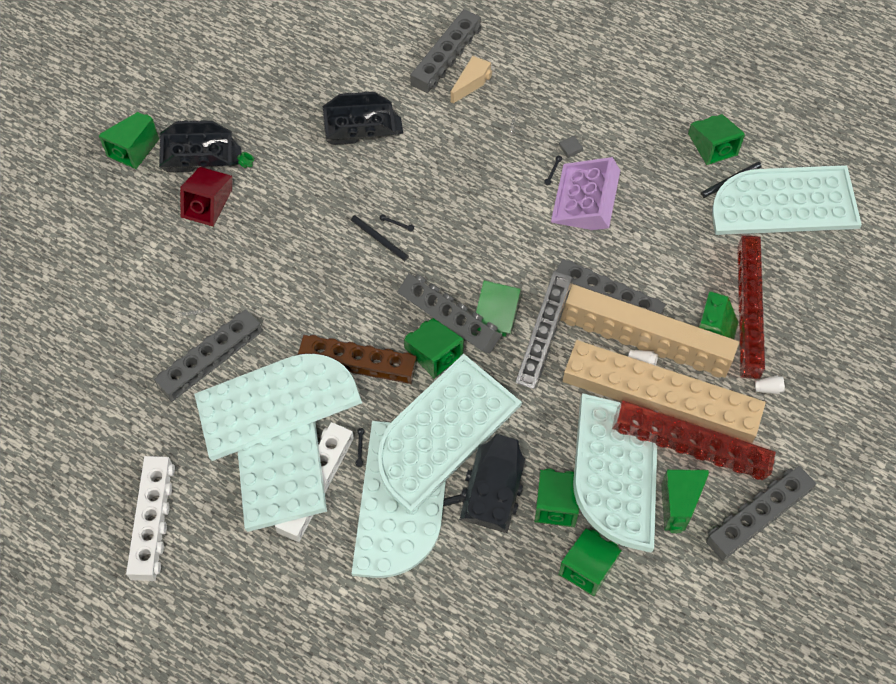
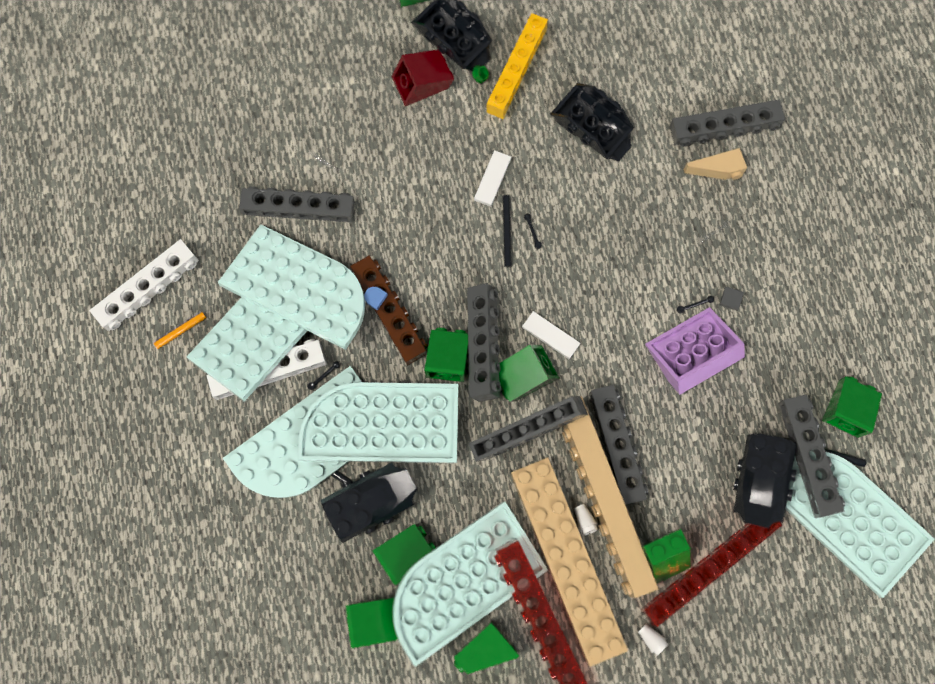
camera: 50 degrees right, 15 degrees up
(214, 523) = (178, 331): none -> light orange bar
(267, 133) = (517, 66): none -> yellow brick
(331, 215) = (492, 178): none -> white tile
(341, 354) = (374, 297): none -> medium blue tile
(486, 271) = (551, 335): none -> white tile
(716, 221) = (764, 479): none -> black slope
(727, 185) = (807, 466): none -> dark grey brick

